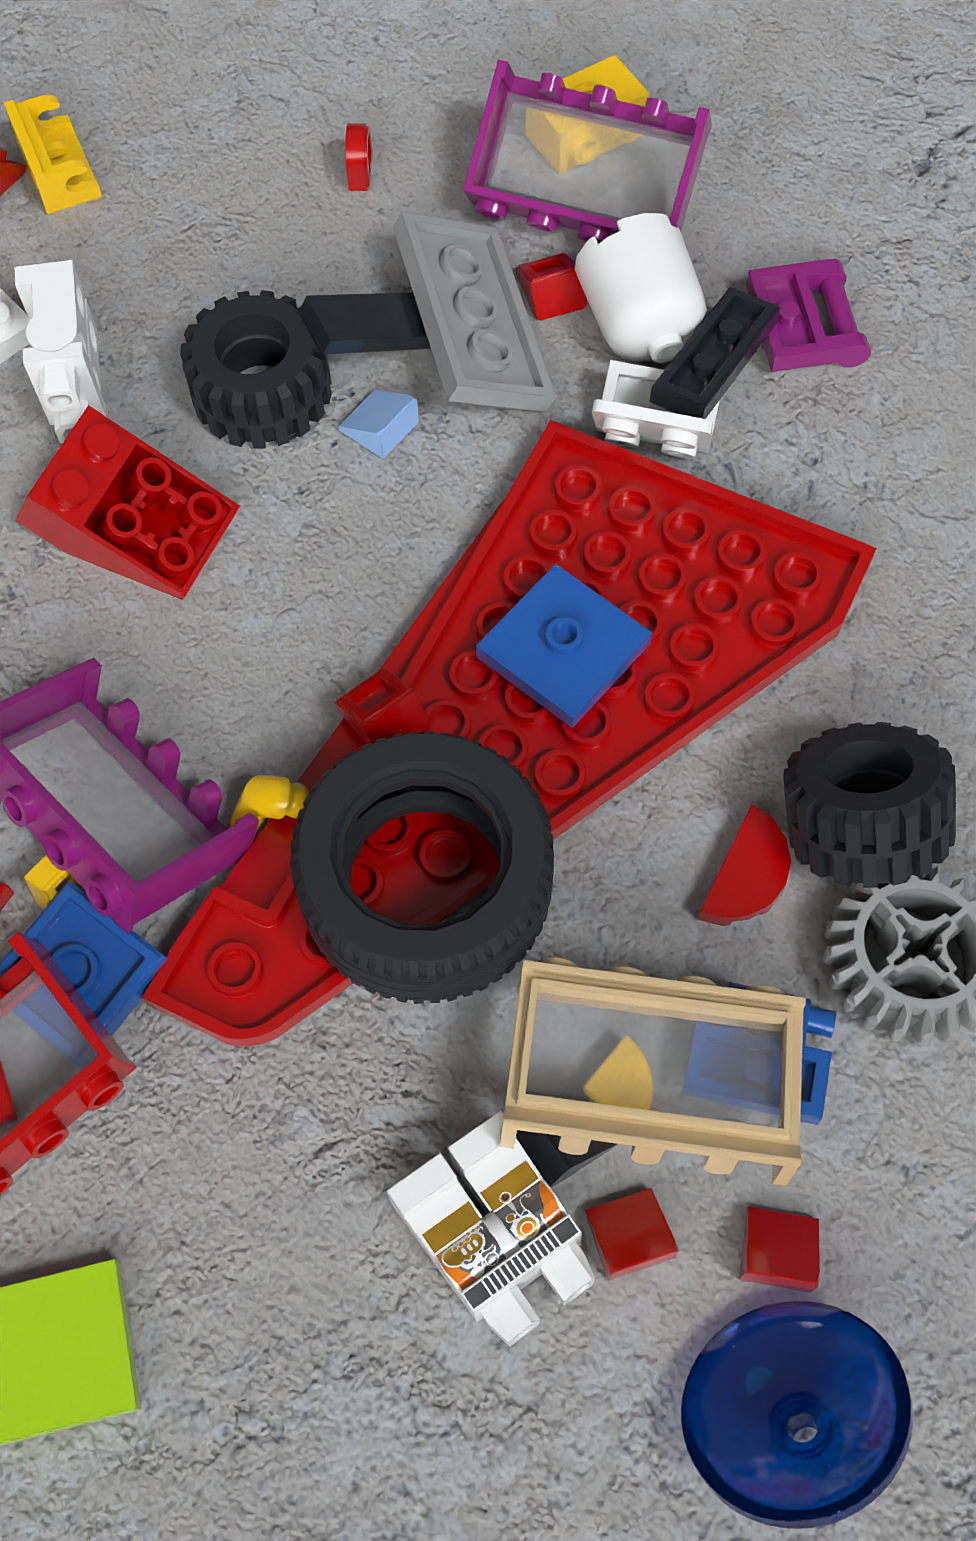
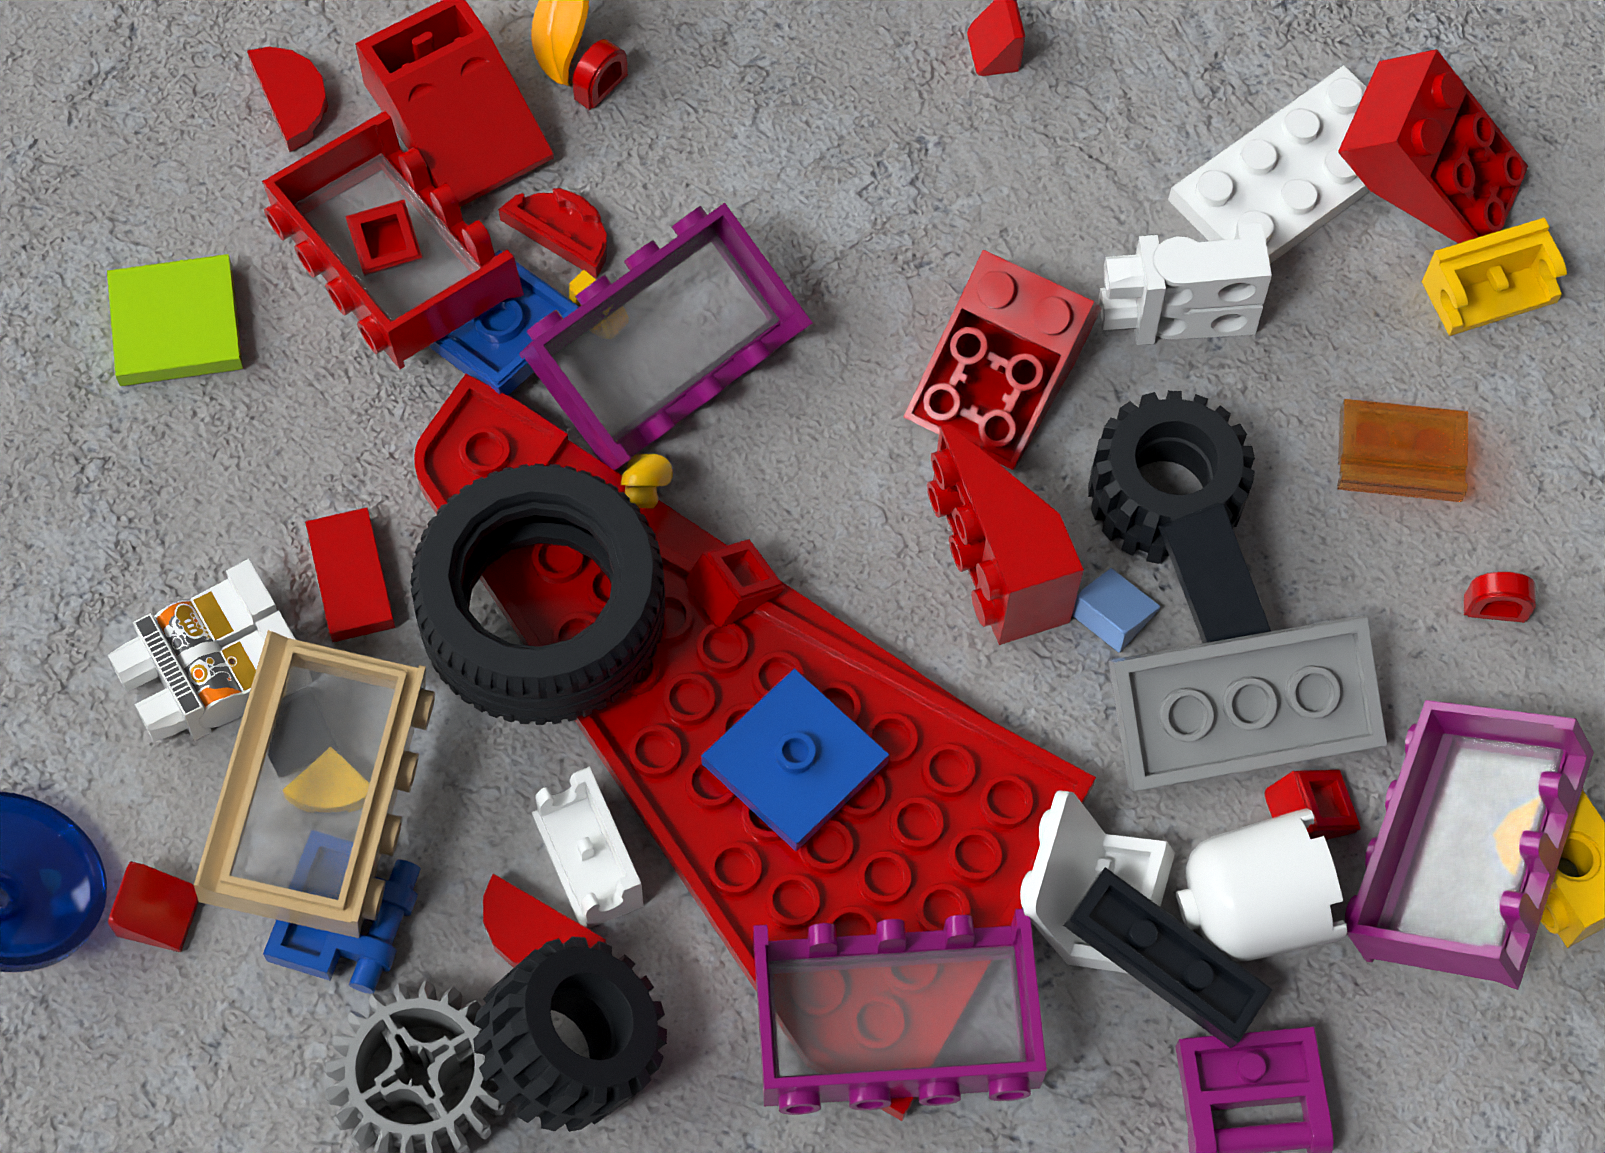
camera: 90 degrees right, 0 degrees up
(220, 217) = (1403, 450): none -> clear orange plate
(329, 485) = (1005, 539): none -> red slope
(378, 1100) = (349, 575): none -> red tile
(631, 1234) = (188, 777): red slope -> none
(666, 825) = (587, 851): none -> white hinge
(799, 542) = (898, 1015): none -> window

